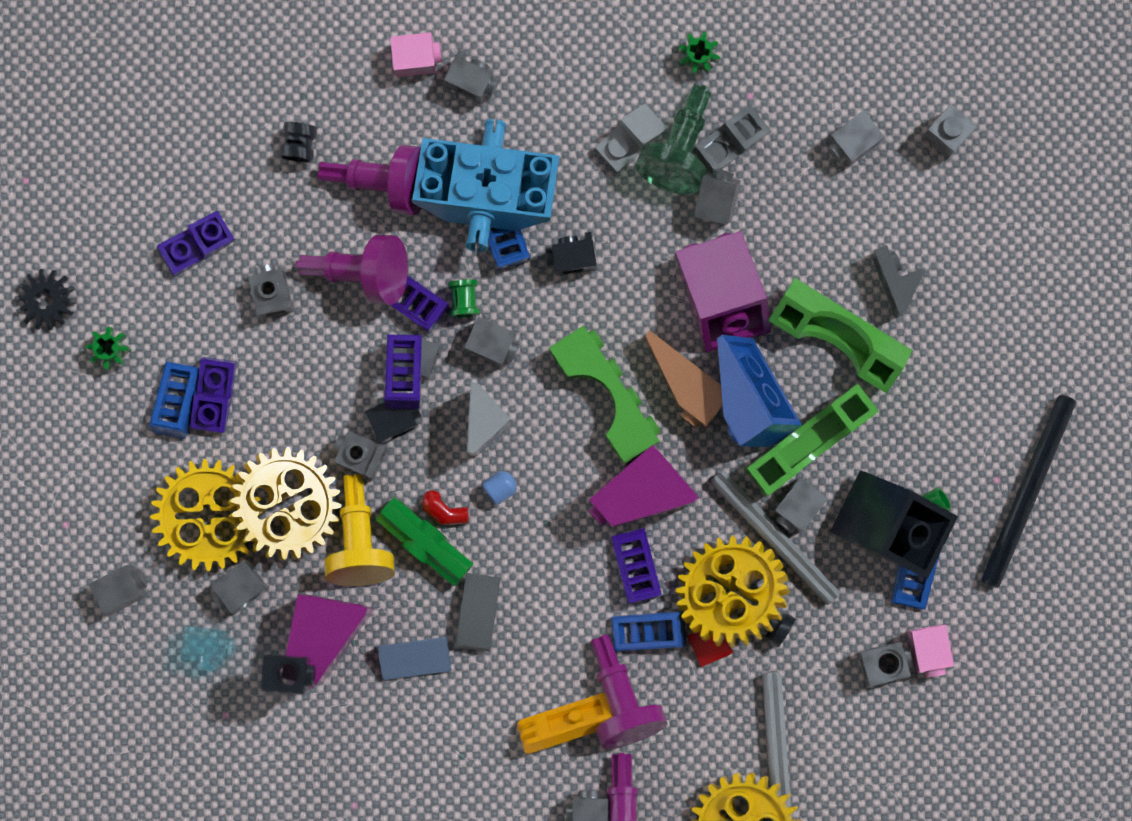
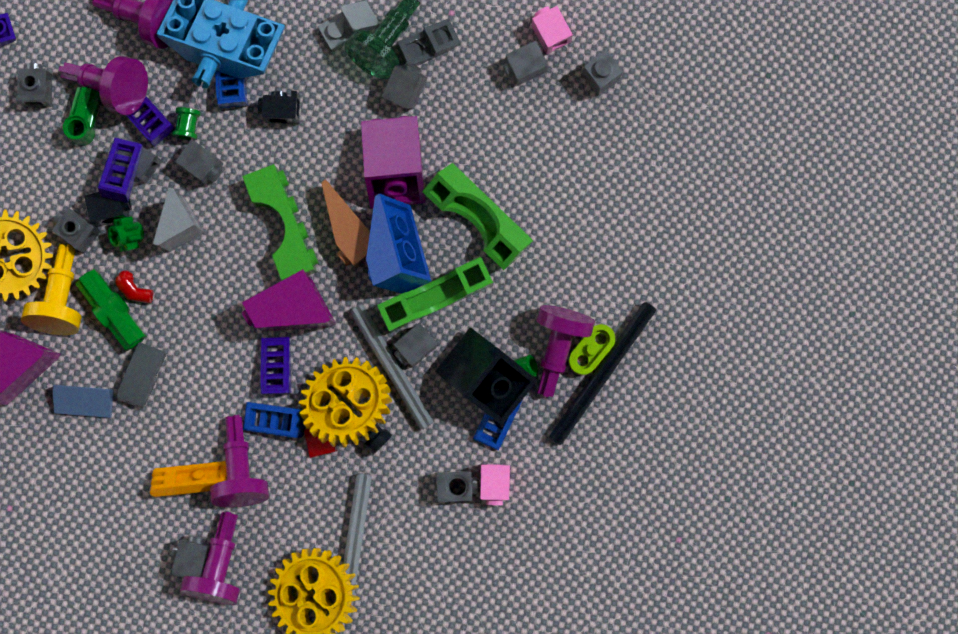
camera: 10 degrees right, 0 degrees up
(337, 312) = (83, 112): none -> green piece
(423, 446) = (126, 234): none -> green gear
(500, 487) = (180, 279): medium blue piece -> none
(876, 91) = (551, 29): none -> bright pink brick
(897, 289) = (534, 189): dark grey slope -> none
(974, 444) = (563, 325): none -> magenta piece
(1010, 466) = (592, 350): none -> lime plate

